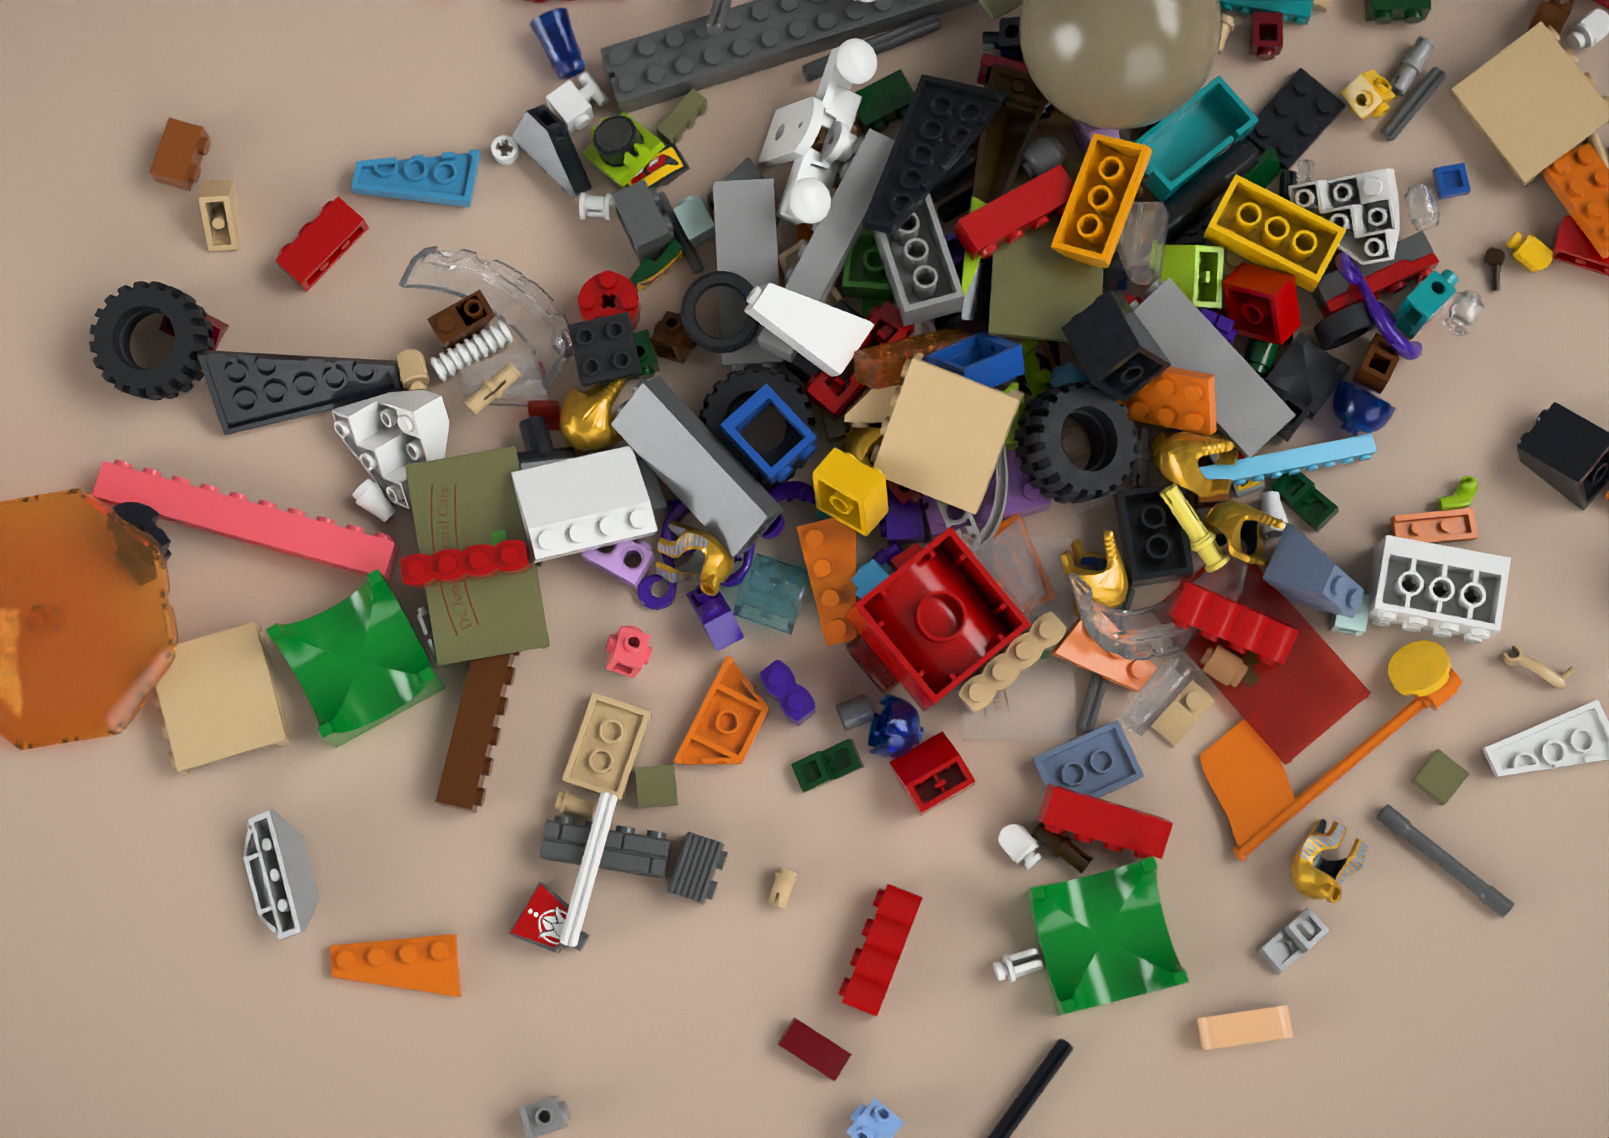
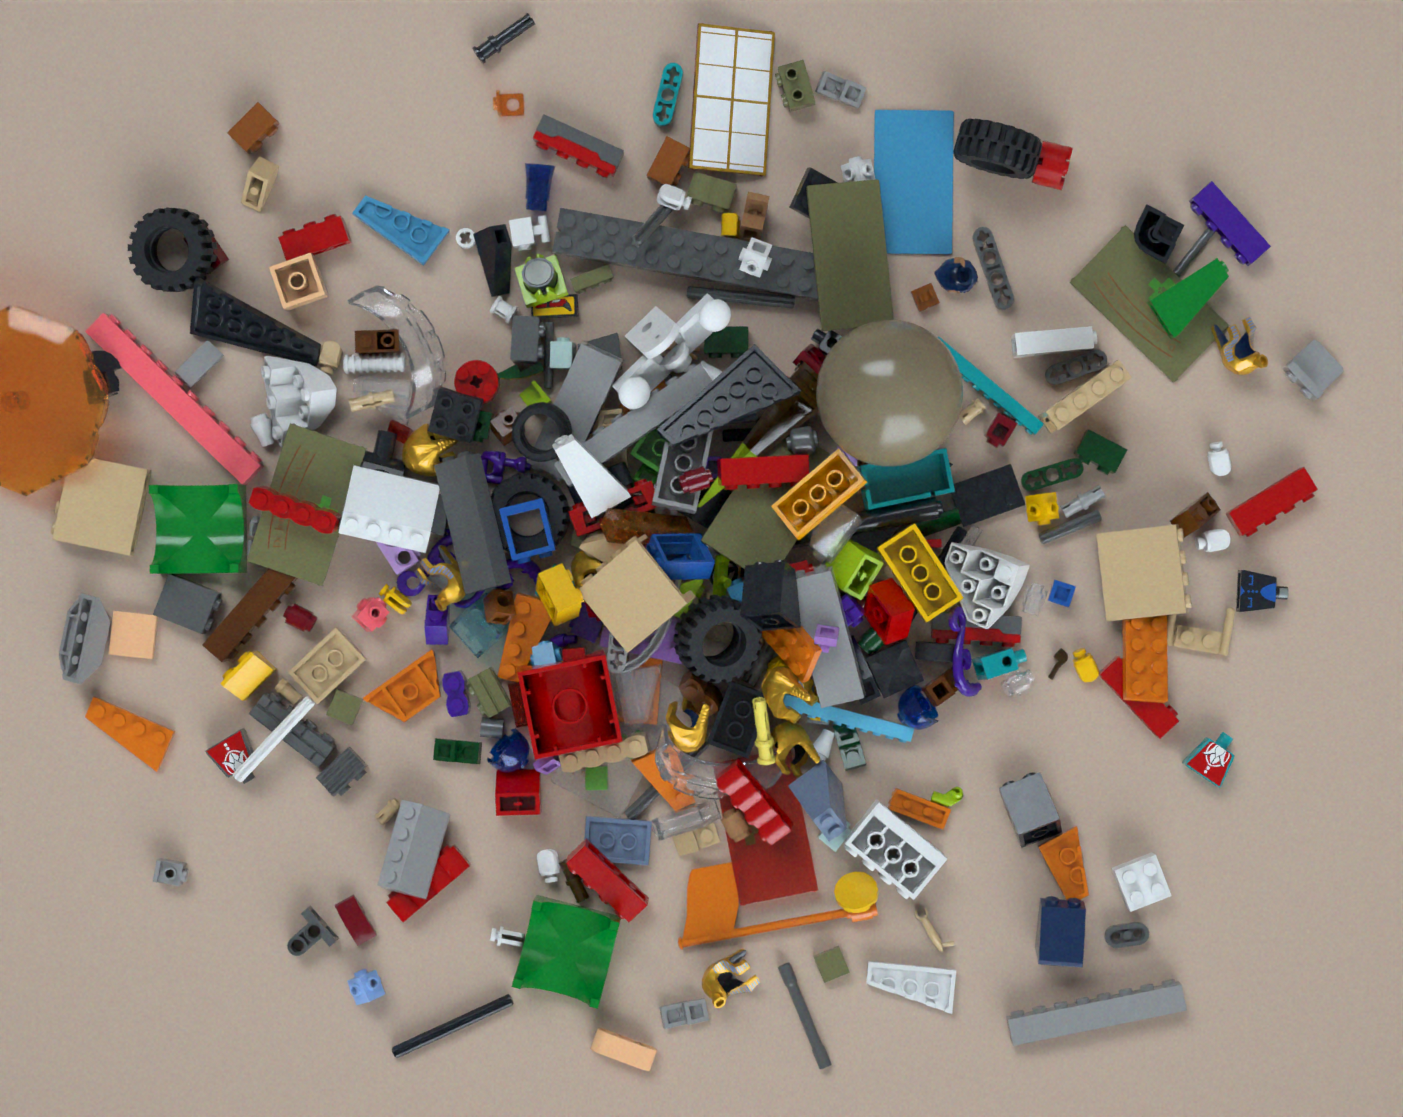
camera: 20 degrees right, 10 degrees up
(255, 464) = (199, 364): none -> light grey slope
(328, 300) = (298, 281): none -> light nougat brick
(341, 840) = (133, 634): none -> light nougat tile
(391, 763) = (188, 604): none -> dark grey brick
(513, 808) = (248, 675): none -> yellow slope
(541, 705) = (300, 617): none -> dark red brick
(635, 616) = (395, 599): none -> yellow arm
(684, 279) = (534, 394): none -> lime panel
(689, 384) = (500, 462): none -> dark purple piece
(759, 1103) = (309, 939): none -> dark grey tile
(783, 555) = (499, 606): none -> dark orange brick
(827, 670) = (489, 692): none -> olive brick
(841, 913) = (413, 849): none -> light grey slope
(943, 257) = (695, 480): none -> dark red brick
(947, 716) = (547, 764): none -> medium lavender tile
(1019, 702) = (596, 778): none -> bright green slope
(1081, 525) = (700, 692): none -> reddish brown brick
(1210, 359) = (826, 637): none -> medium lavender tile
(1368, 52) = (1069, 475): none -> dark green beam

